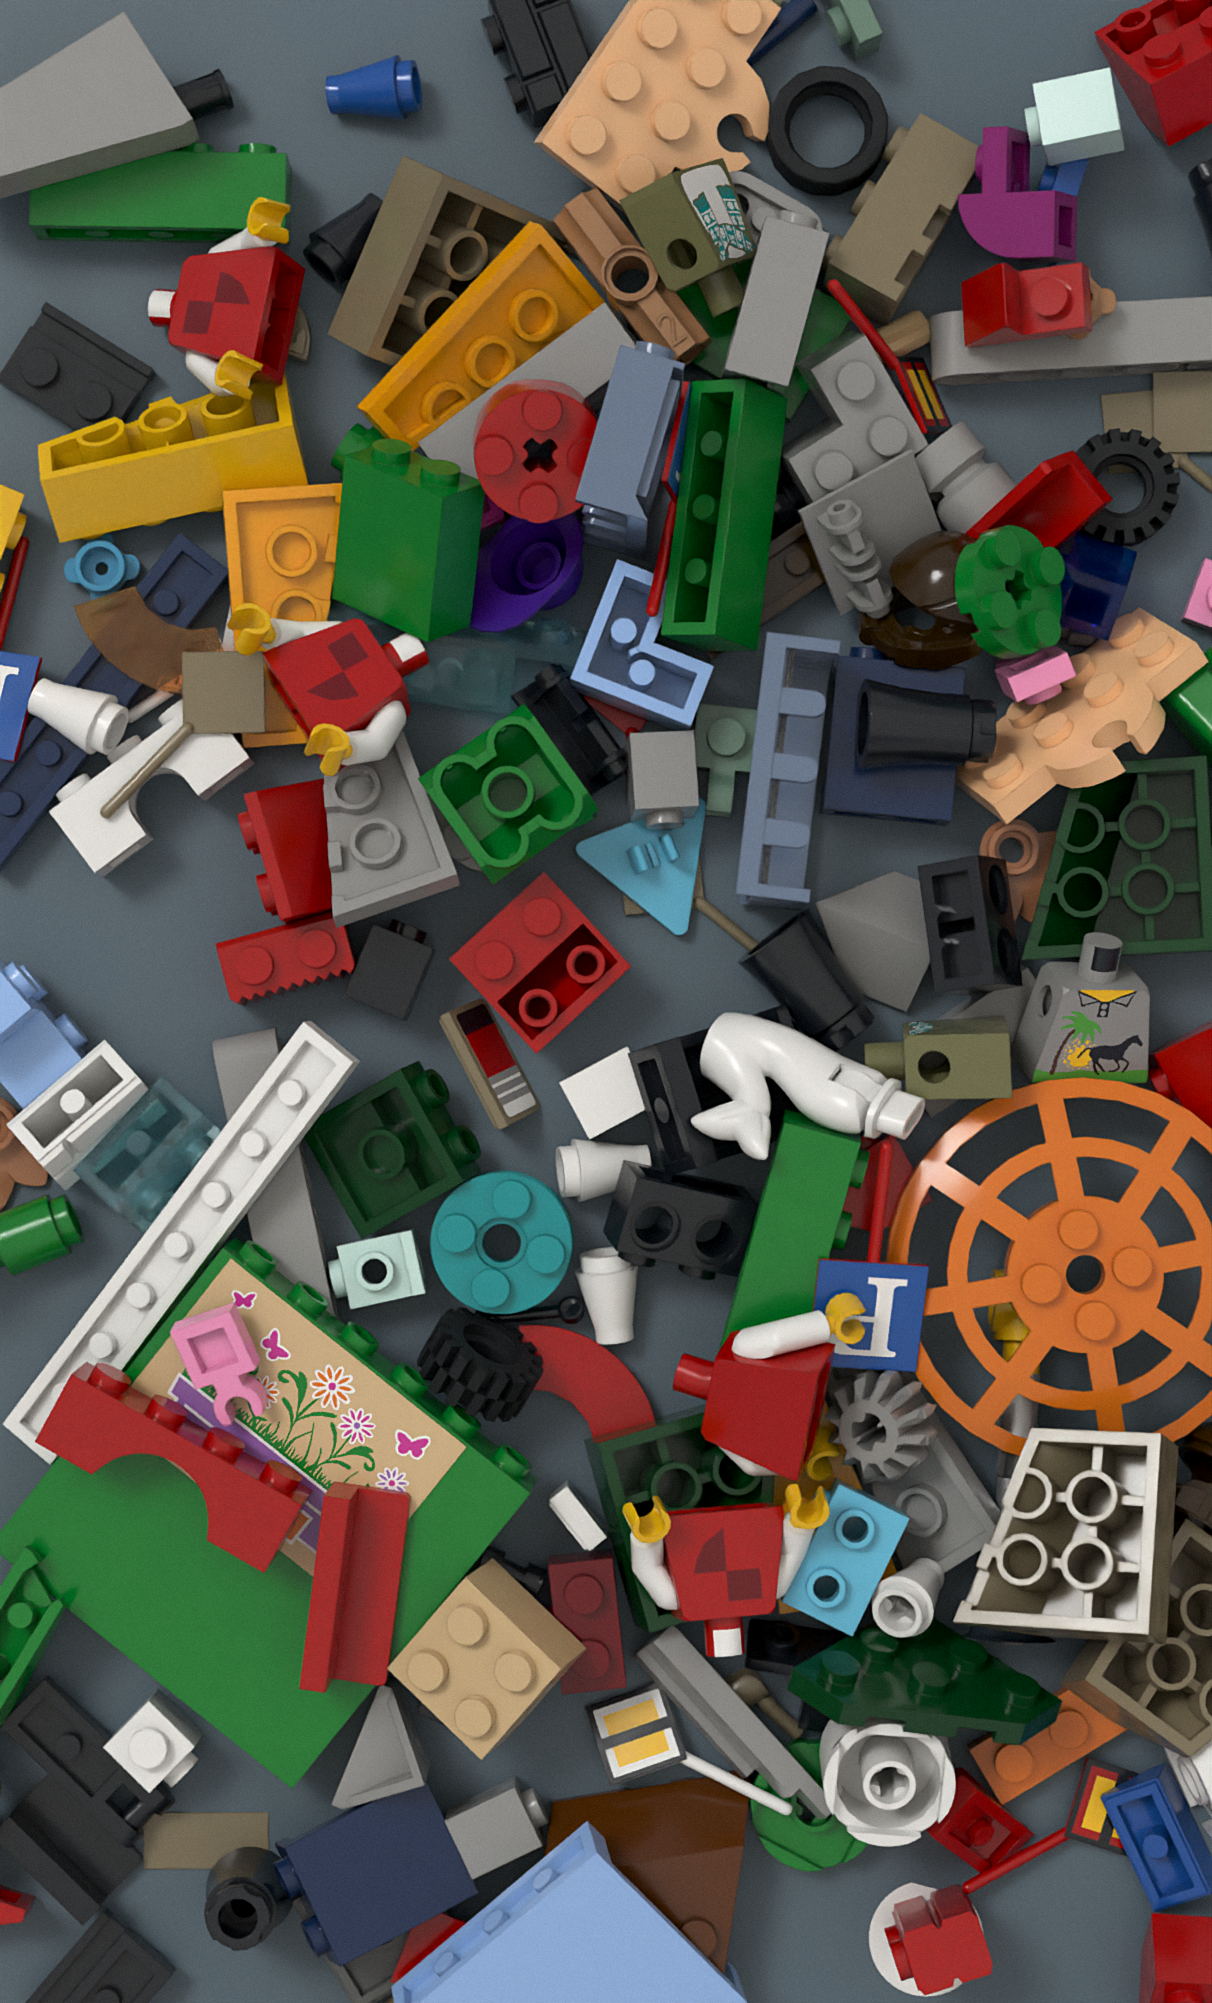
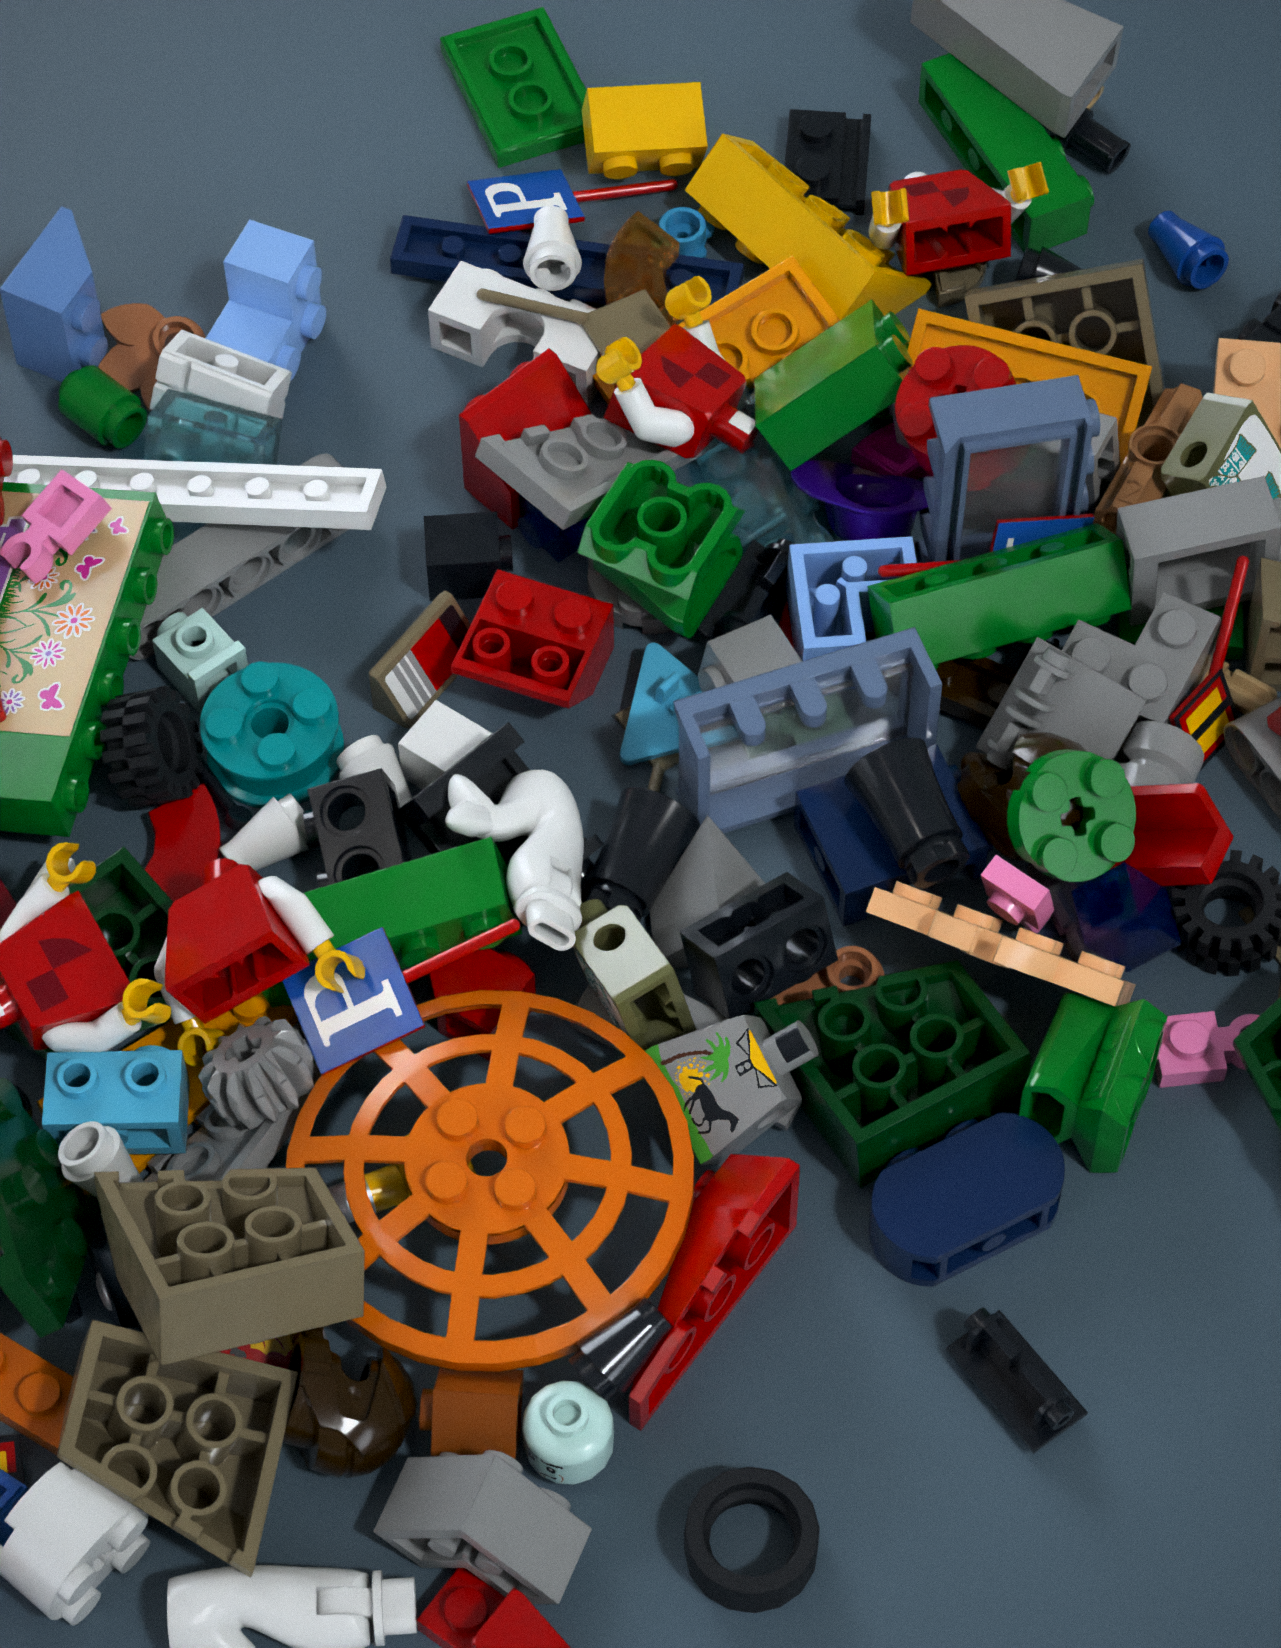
camera: 65 degrees right, 30 degrees down
(286, 958) = (430, 470): red brick -> none
(393, 1148) = (315, 616): dark green plate -> none

